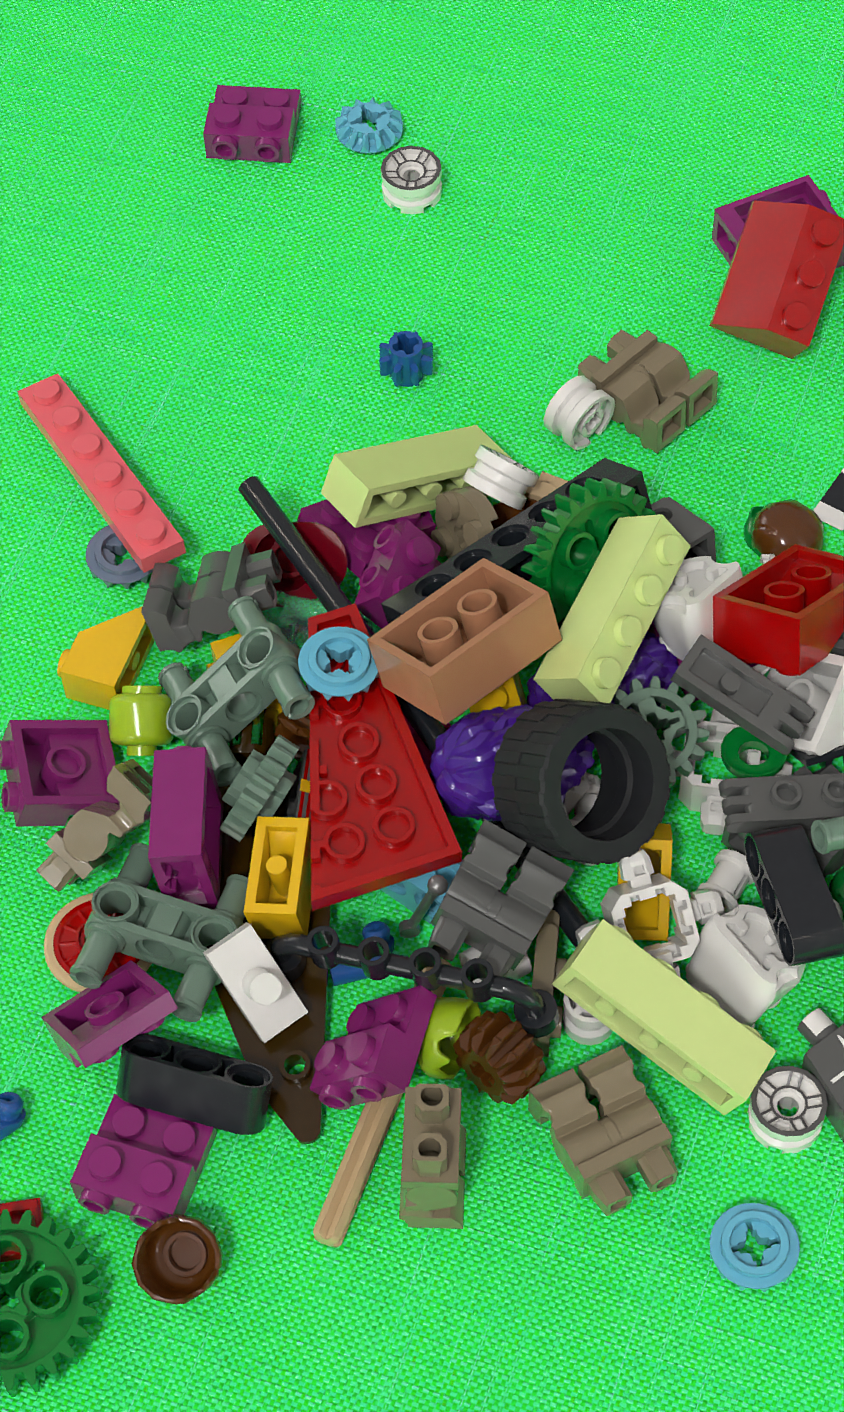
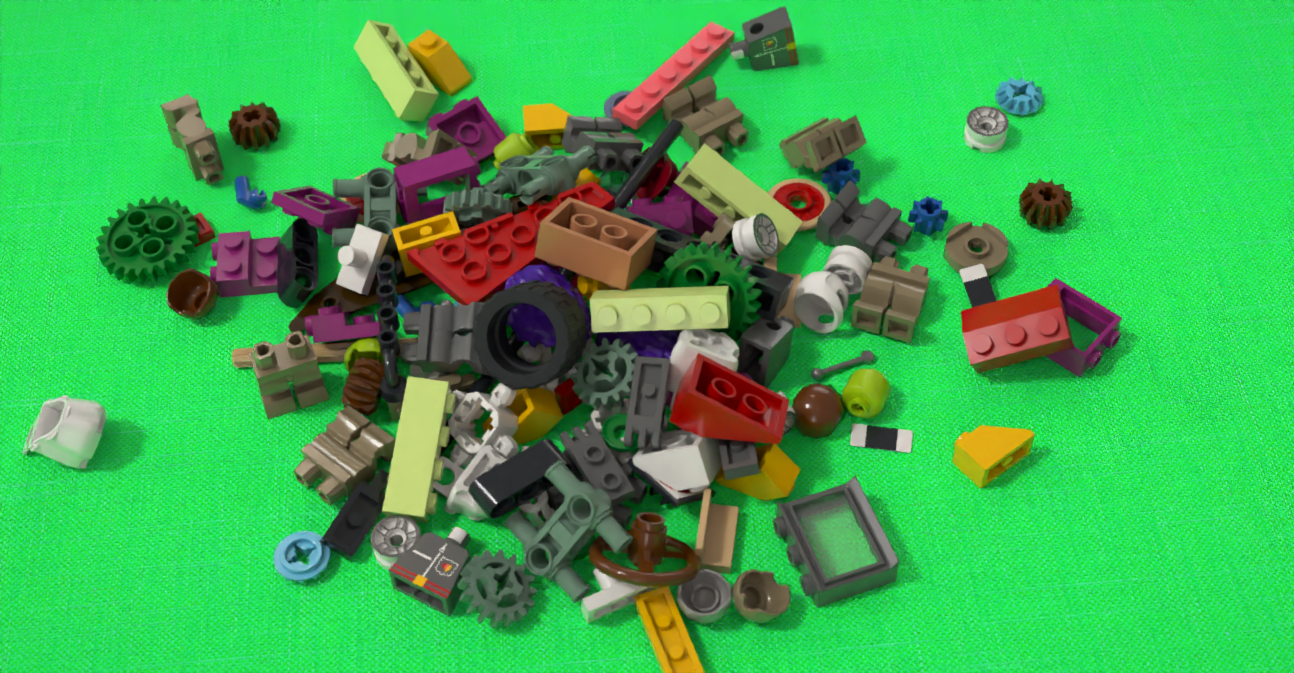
camera: 65 degrees right, 5 degrees down
(116, 335) = (767, 41): none -> torso
(211, 465) = (705, 118): none -> dark tan hips
(252, 123) = (980, 43): magenta plate -> none
(337, 644) = (557, 193): medium azure gear -> none
(355, 349) = (823, 143): none -> dark tan hips
(414, 404) = (802, 190): none -> red wheel
(508, 369) = (862, 226): none -> dark grey hips
(528, 296) = (928, 216): none -> blue gear
(574, 174) = (1045, 204): none -> gear
(606, 294) = (988, 237): none -> dark tan plate
(617, 442) = (821, 295): none -> white helmet
(677, 298) = (977, 285): none -> black sticker
(715, 459) = (865, 358): none -> flat silver hinge
(718, 1144) = (356, 516): none -> black hinge
(787, 472) = (866, 393): none -> lime head

